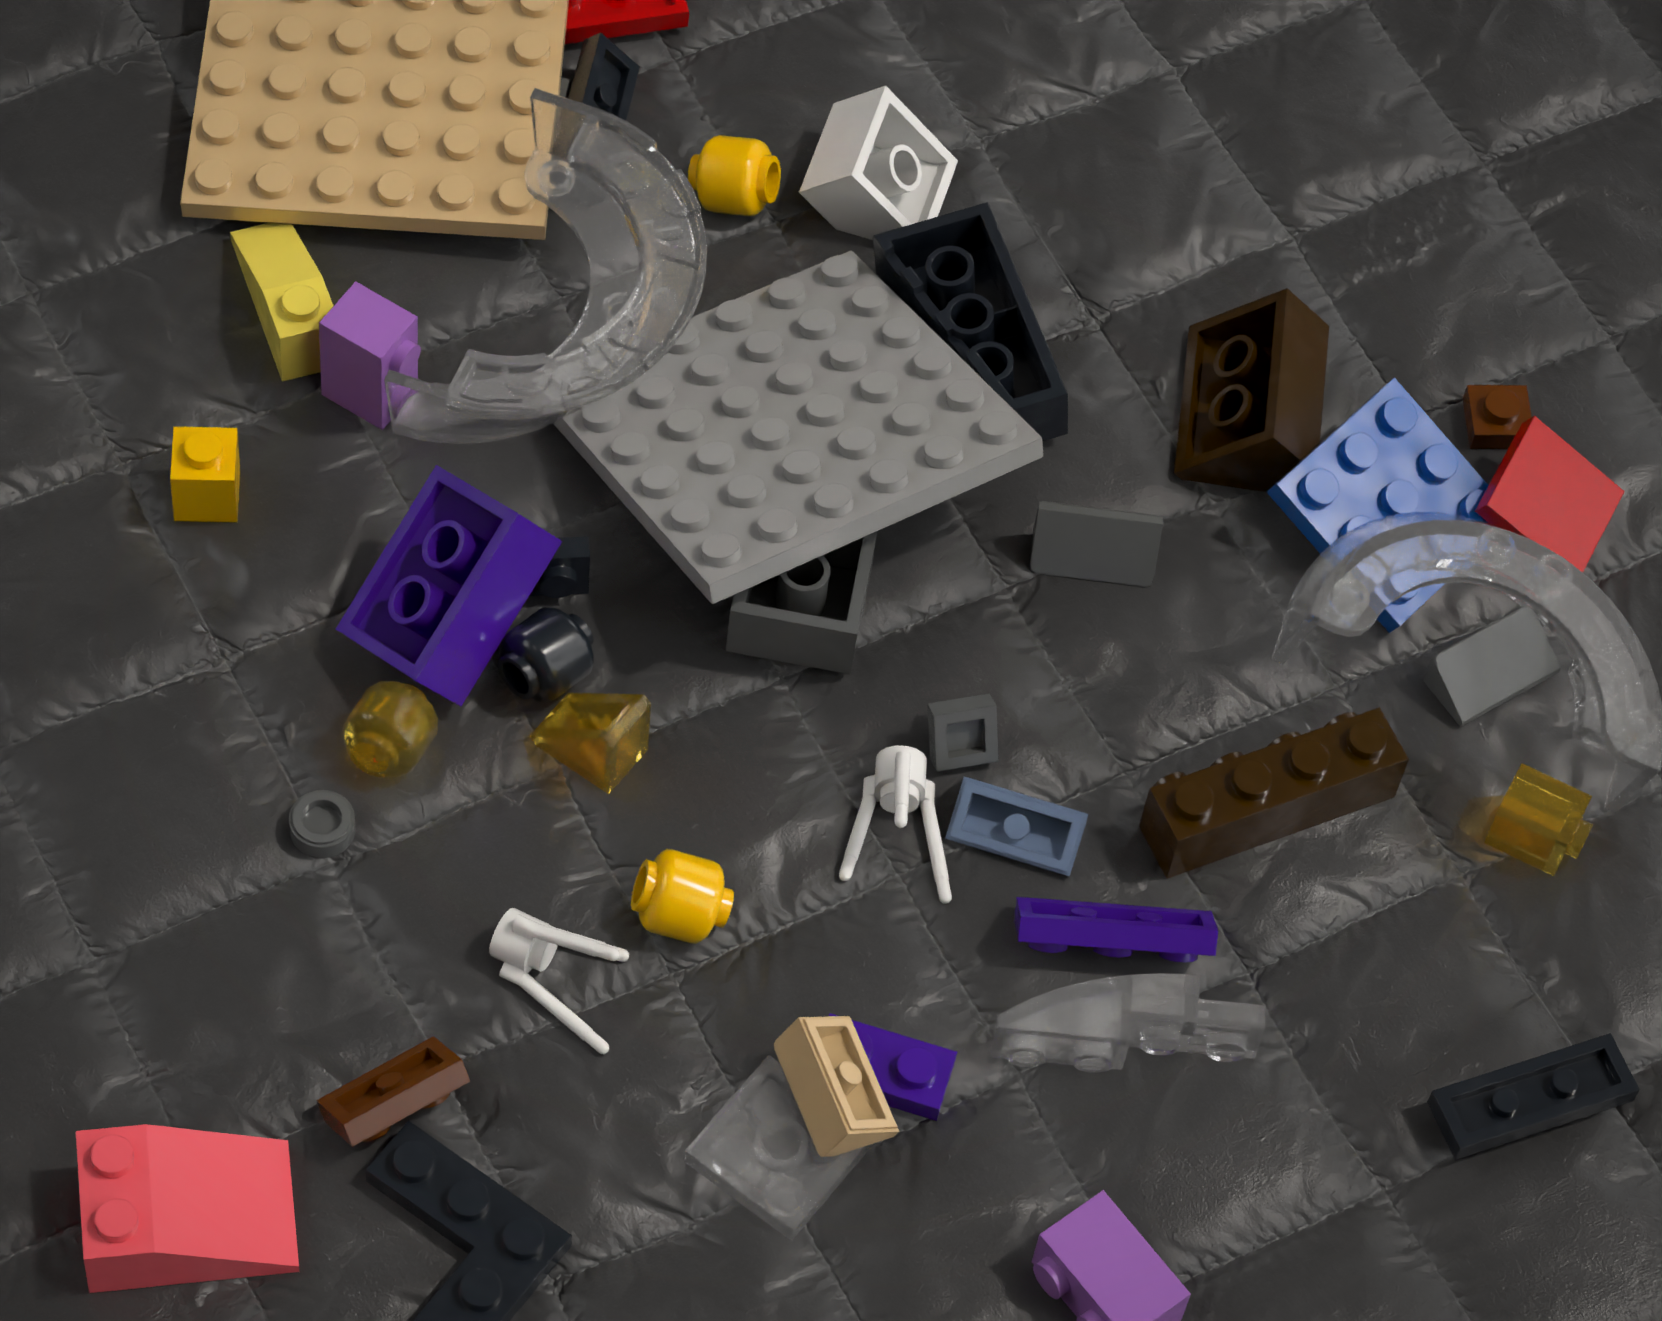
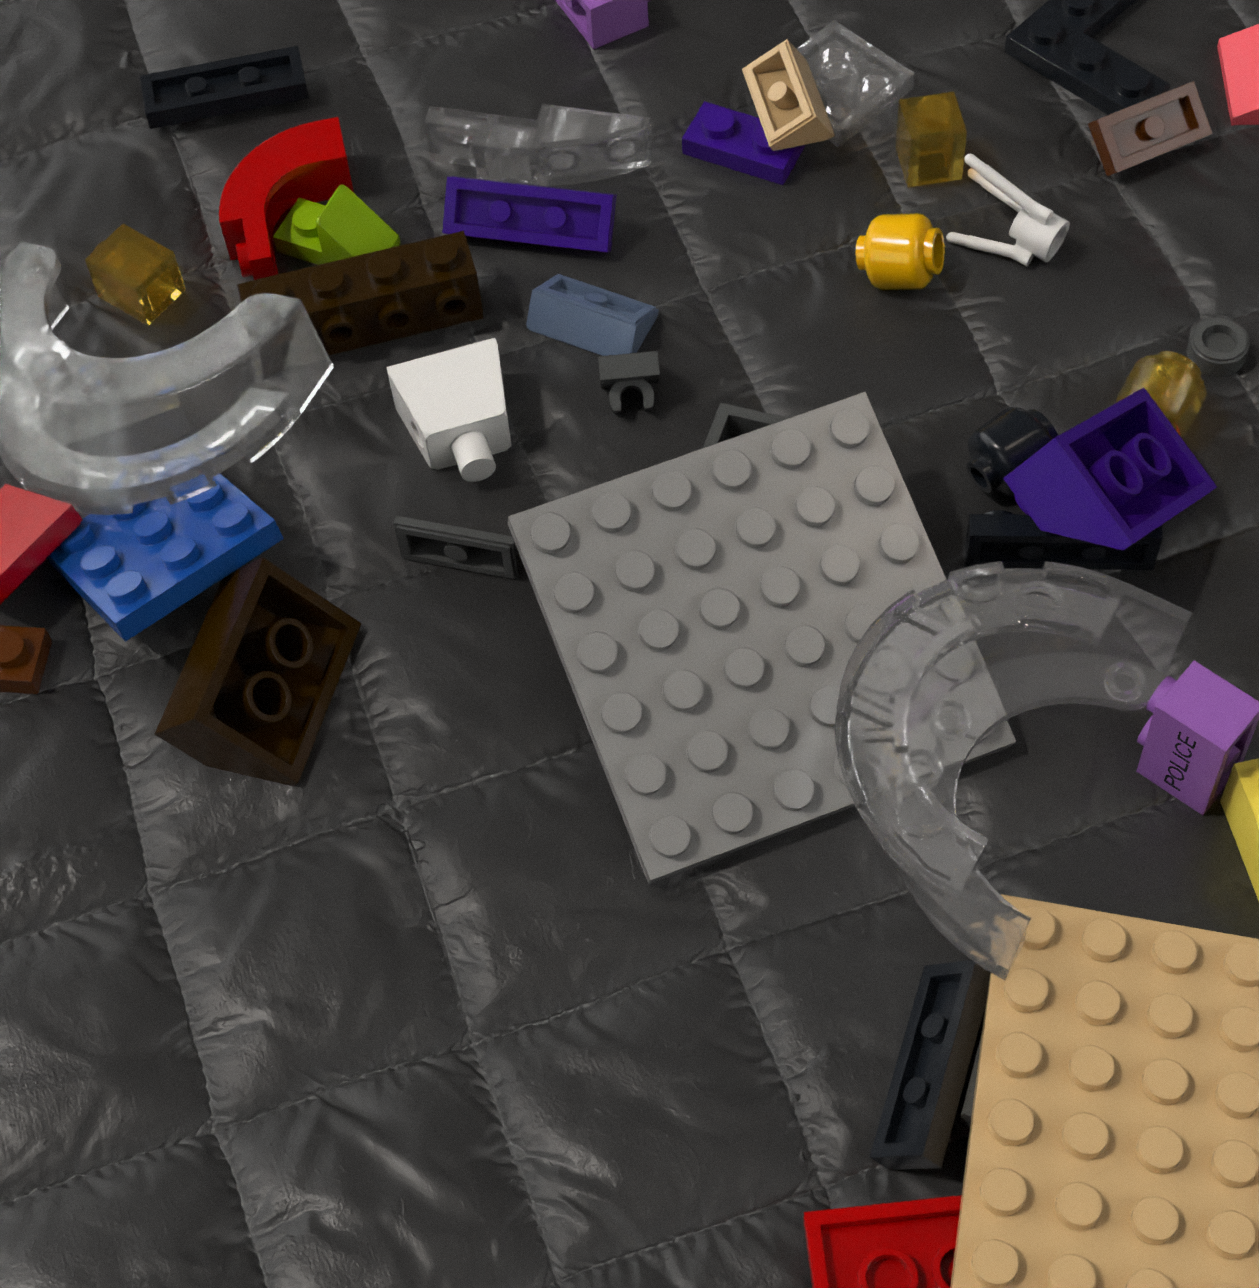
camera: 160 degrees left, 0 degrees up
(597, 735) = (963, 379): clear yellow slope -> none
(658, 1049) = (930, 139): none -> clear yellow brick
(735, 175) = (772, 973): yellow head -> none
(876, 167) = (606, 969): white slope -> none
(900, 788) = (693, 338): white plant -> none
(971, 296) = (536, 783): black wedge -> none
(1137, 679) = (455, 407): none -> white torso
(1321, 898) = (333, 231): none -> lime slope
(1404, 971) = (268, 181): none -> red arch

